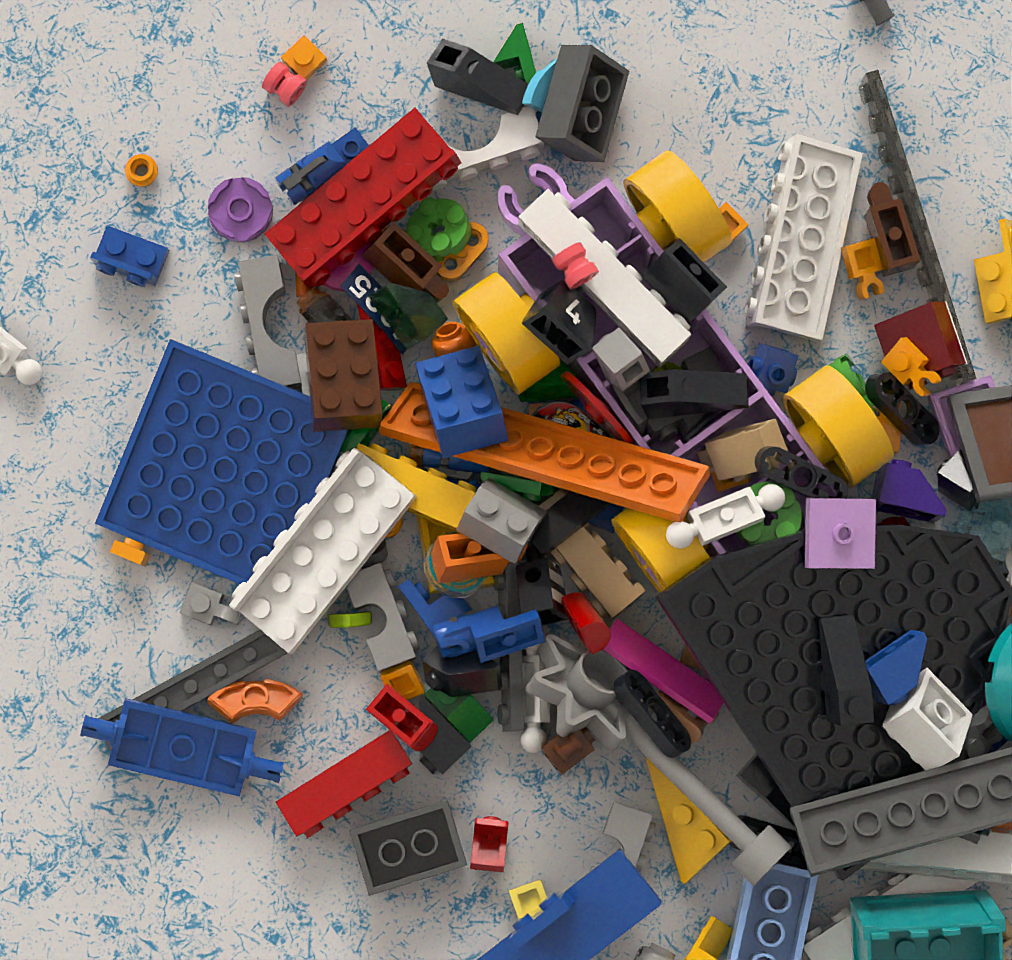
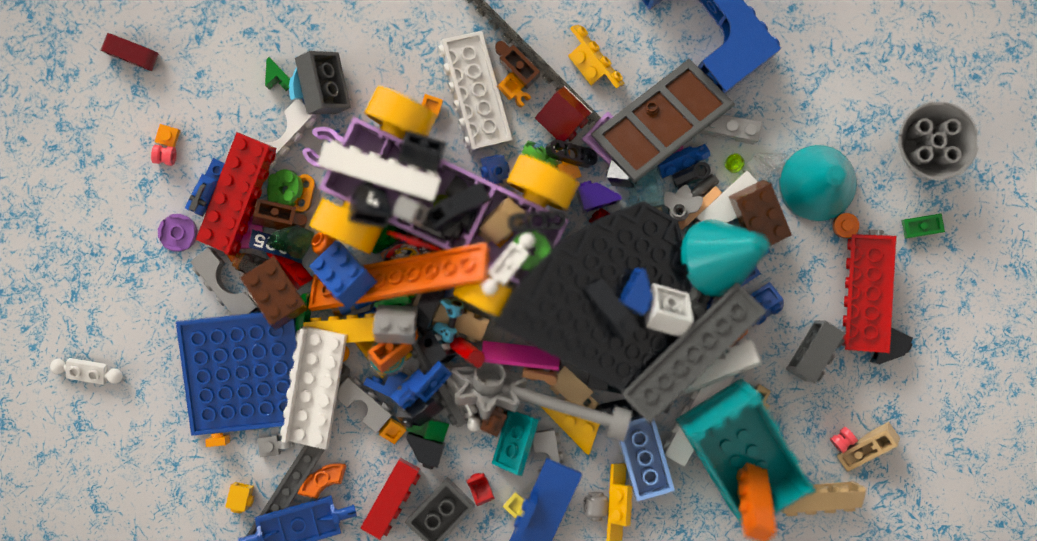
camera: 25 degrees left, 5 degrees up
(116, 658) = (240, 497): none -> yellow brick
(129, 256) = (134, 287): blue bracket -> none
(139, 161) = (109, 240): light orange plate -> none
(349, 620) = (348, 413): lime tile -> none
(403, 719) = (401, 451): red brick -> none
(475, 77) = (259, 98): black slope -> none
(575, 265) = (360, 175): coral wheel -> none
(583, 800) = (515, 442): none -> teal plate
(600, 545) = (448, 331): none -> medium azure piece
(639, 710) = (537, 391): black beam -> none
(715, 766) = (573, 388): none -> tan brick
(840, 533) = (572, 240): lavender plate -> none
(908, 364) = (562, 130): light orange plate -> none

